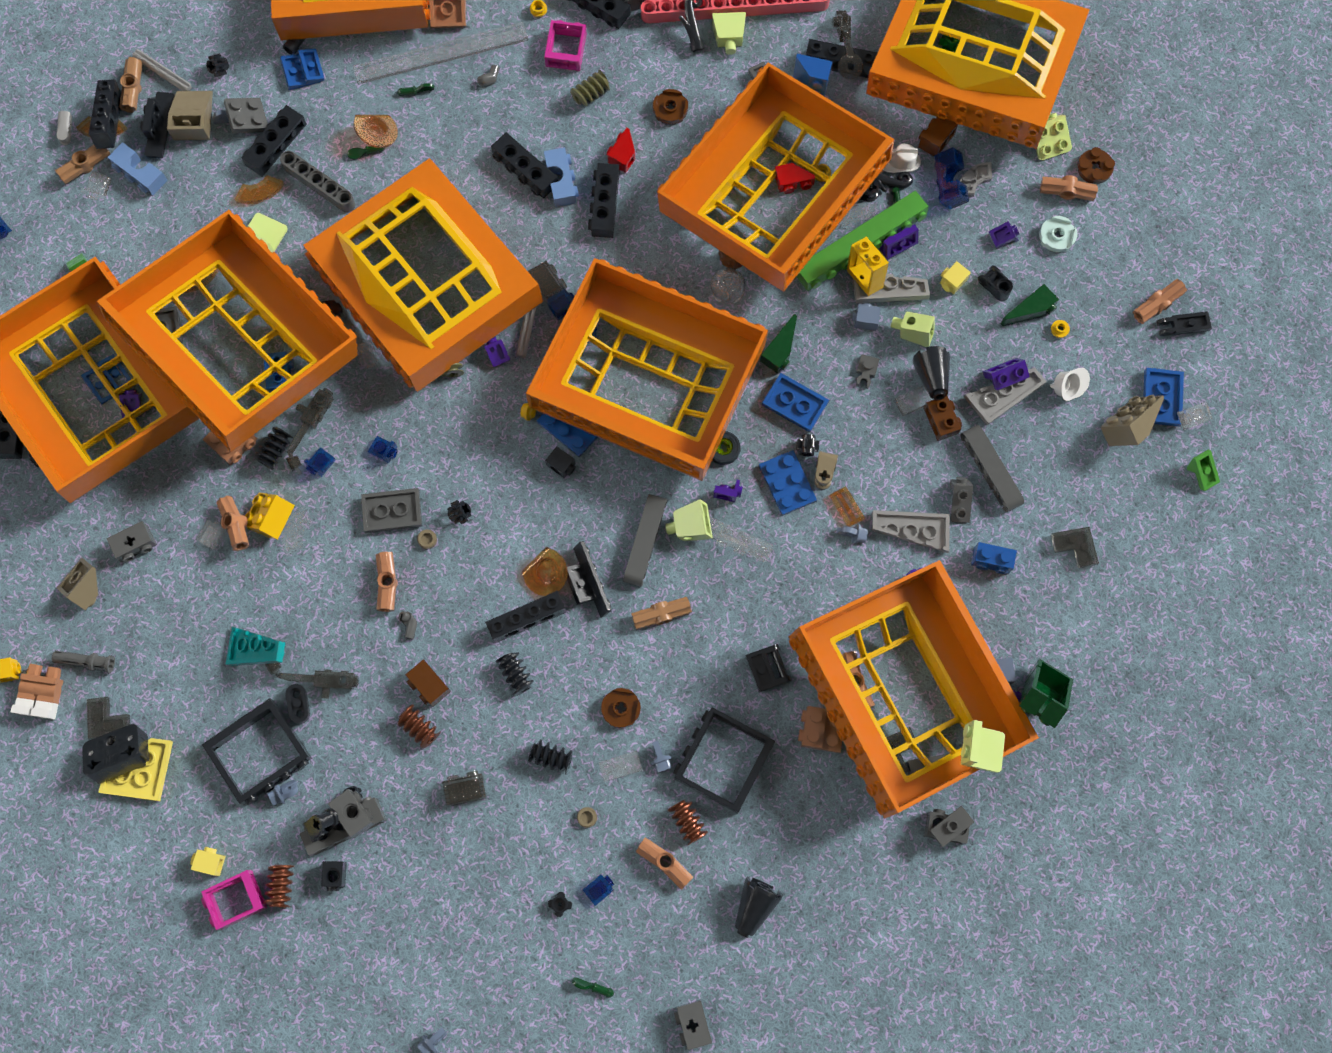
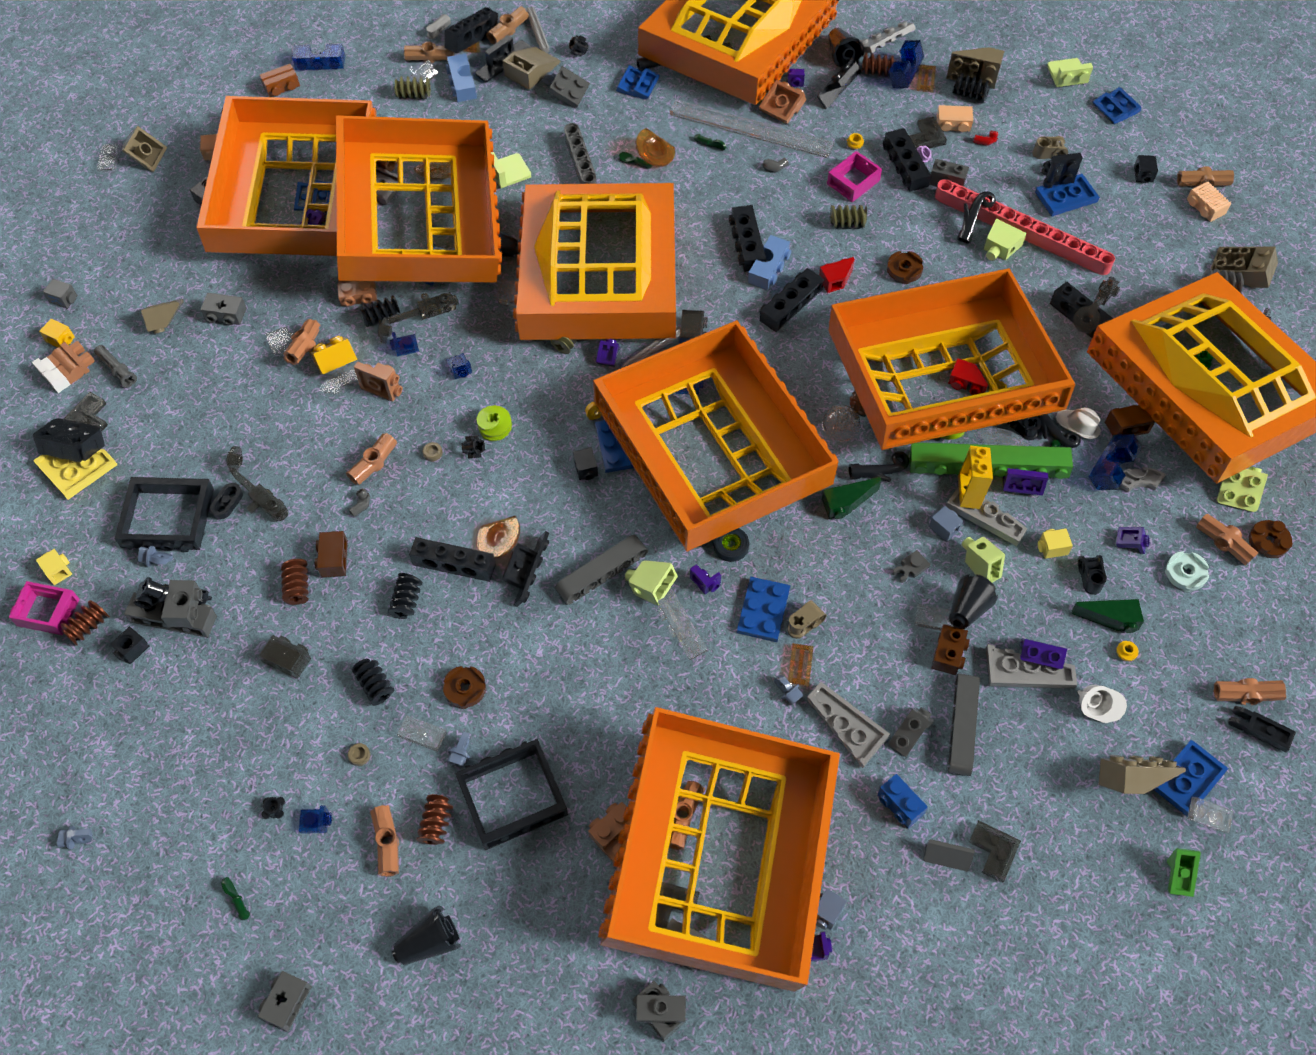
camera: 40 degrees right, 15 degrees down
(102, 208) = (412, 88): none -> olive piece
(253, 649) = (229, 435): teal wing -> none
(259, 192) = (531, 141): clear orange tile -> none
(273, 149) = (580, 112): black brick -> none
(337, 510) = (378, 380): none -> nougat plate
(391, 510) = (424, 412): dark grey plate -> none
(465, 483) = (494, 423): none -> lime piece
(661, 612) = (564, 635): medium nougat piece -> none
(762, 670) = (609, 744): black plate -> none
(770, 318) = (857, 471): none -> black plant
(795, 402) = (824, 549): blue plate -> none
(807, 445) = (805, 589): black gear -> none
(812, 72) = (1048, 305): blue slope -> none
(982, 747) = (739, 944): yellowish green bracket -> none
(1046, 693) = (849, 951): dark green piece -> none
(1050, 573) = (948, 855): none -> dark grey slope

